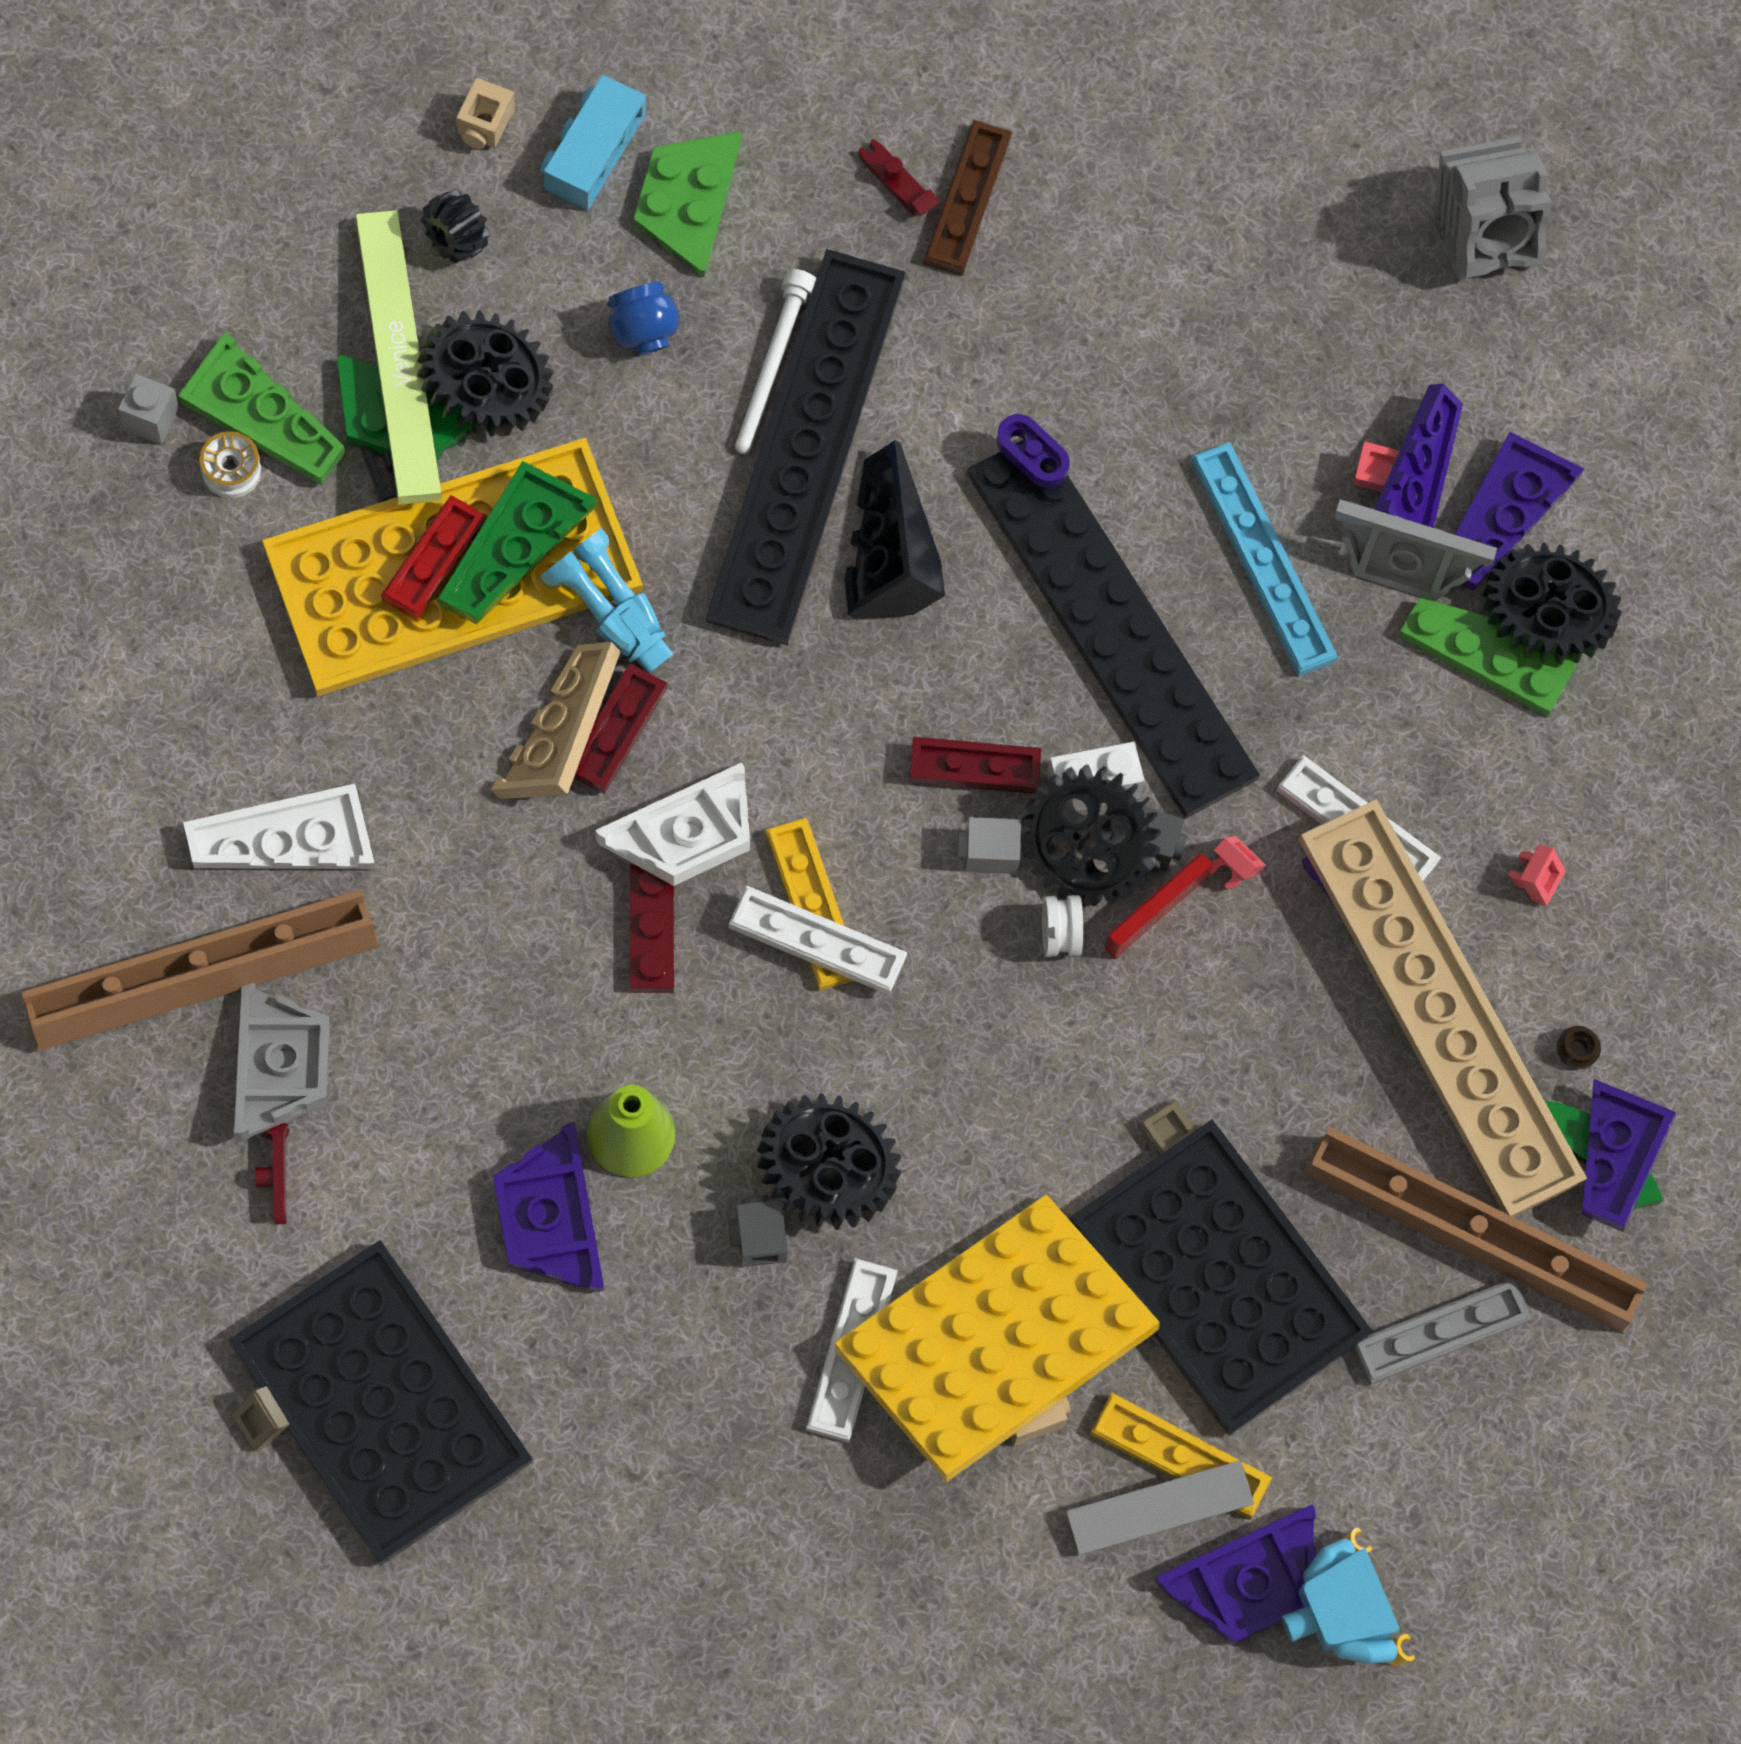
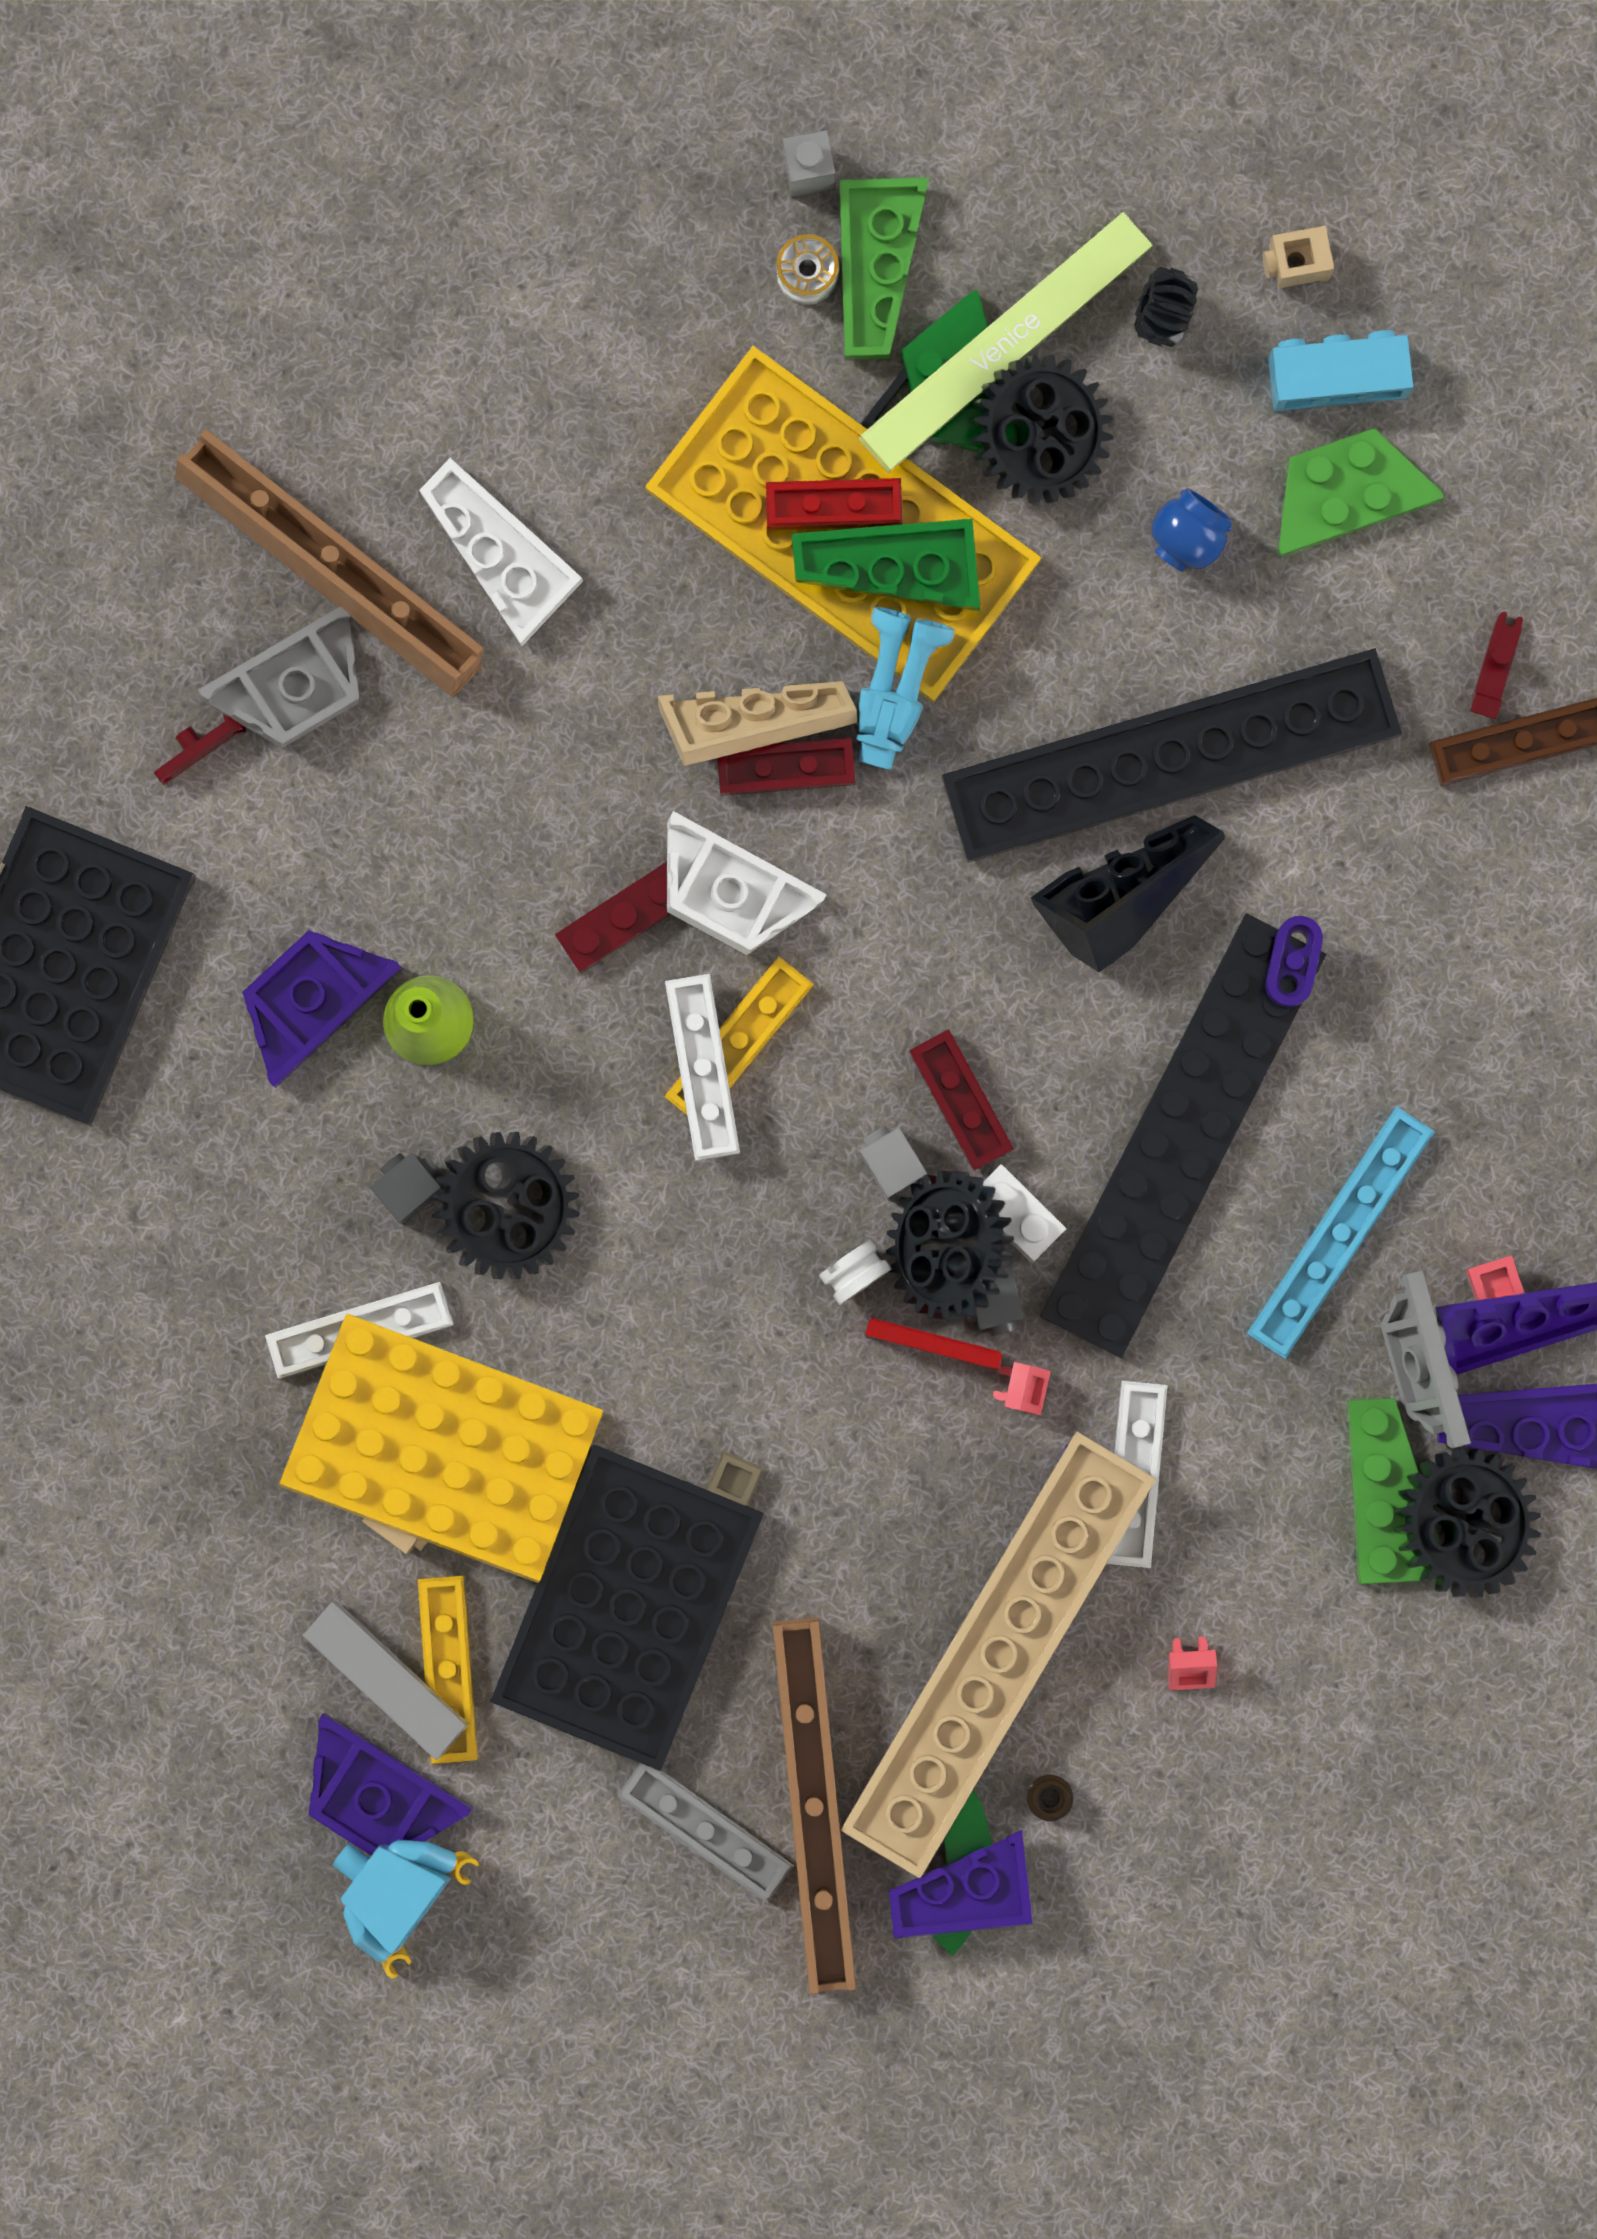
camera: 70 degrees right, 15 degrees up
(797, 290) = (1317, 649): white piece -> none

